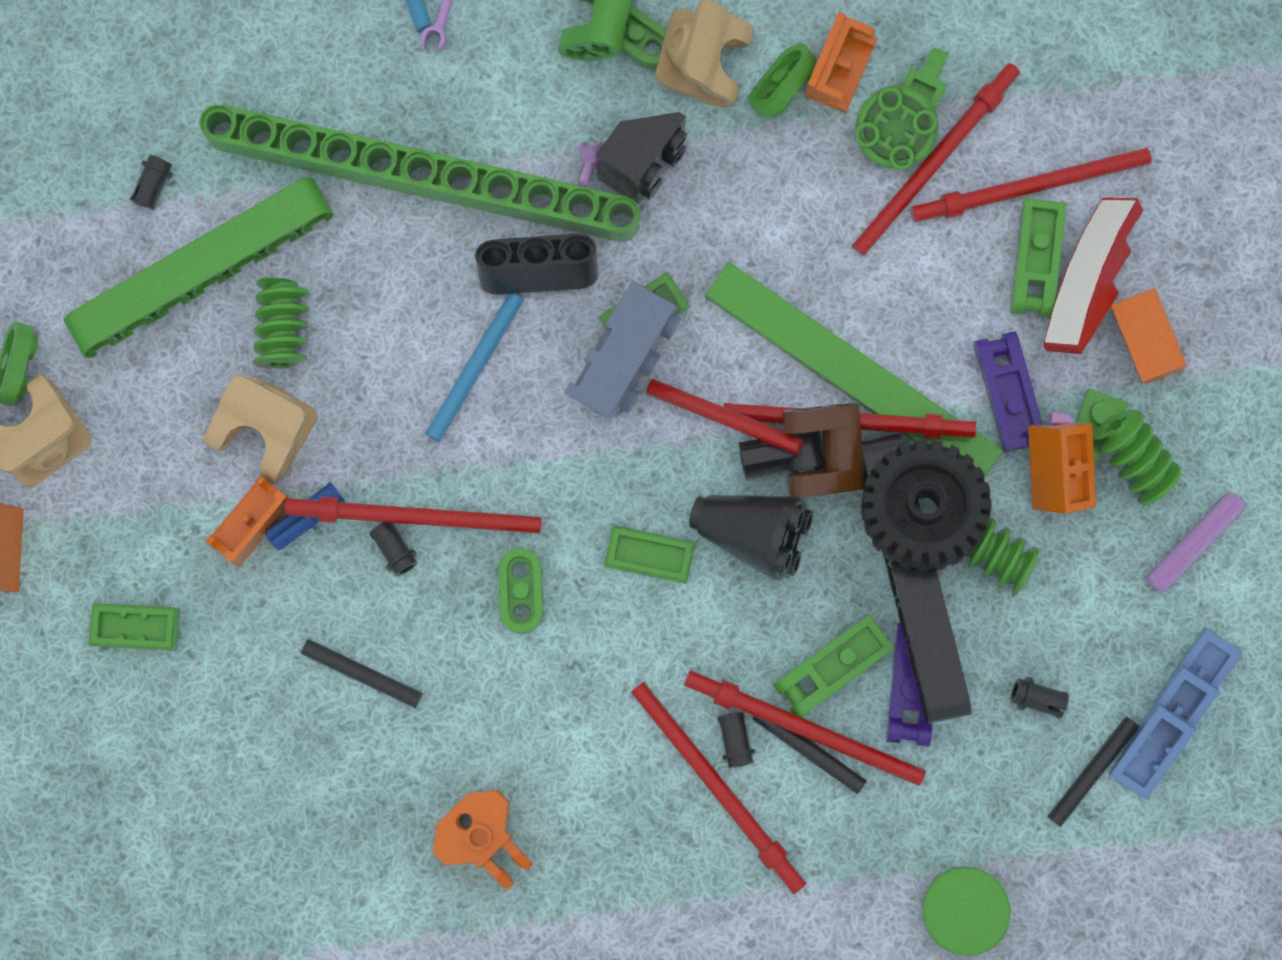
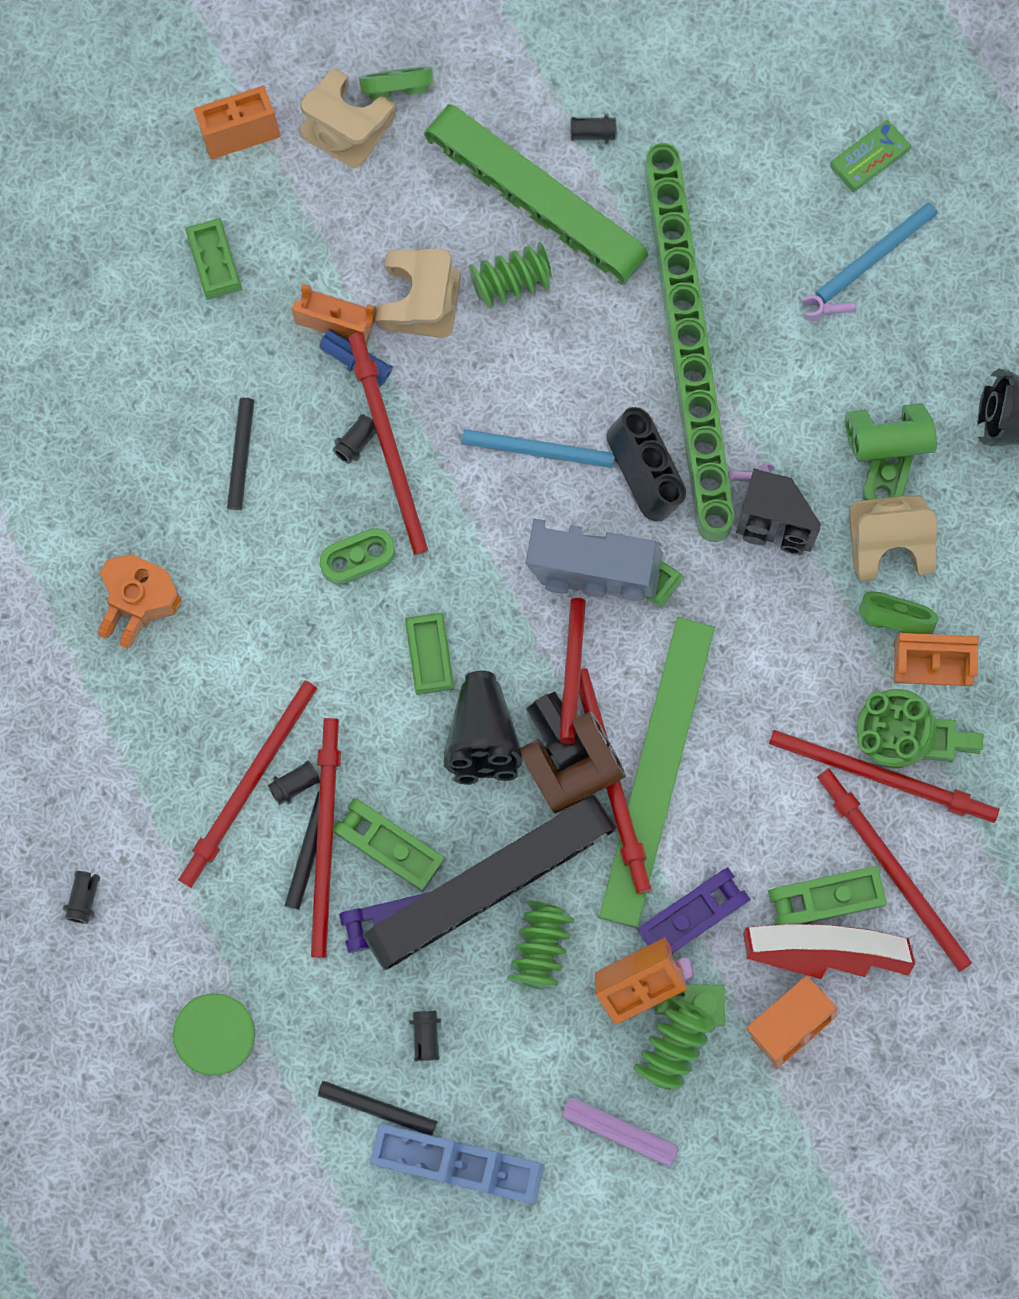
camera: 70 degrees right, 5 degrees down
(930, 473) = (548, 894): black wheel -> none

